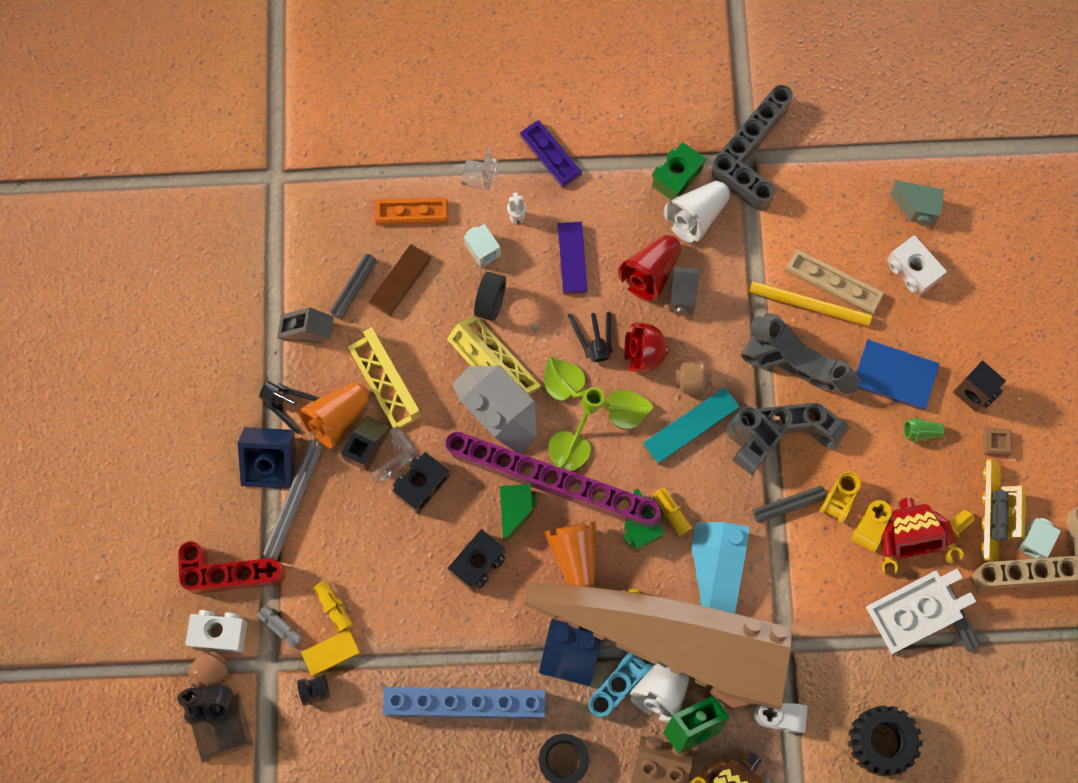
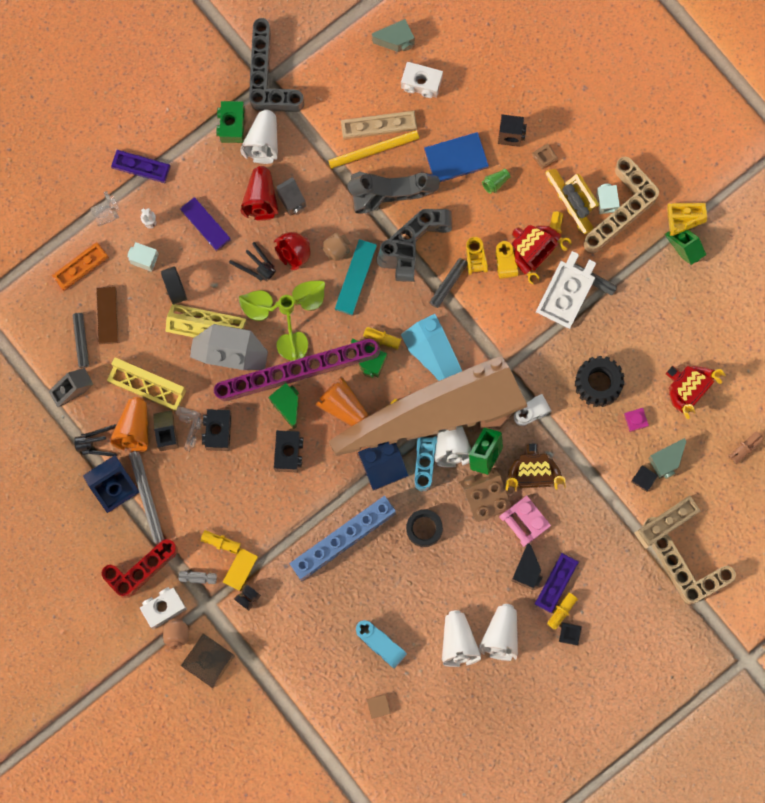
camera: 35 degrees left, 5 degrees up
(208, 703) = (191, 650): black piece -> none

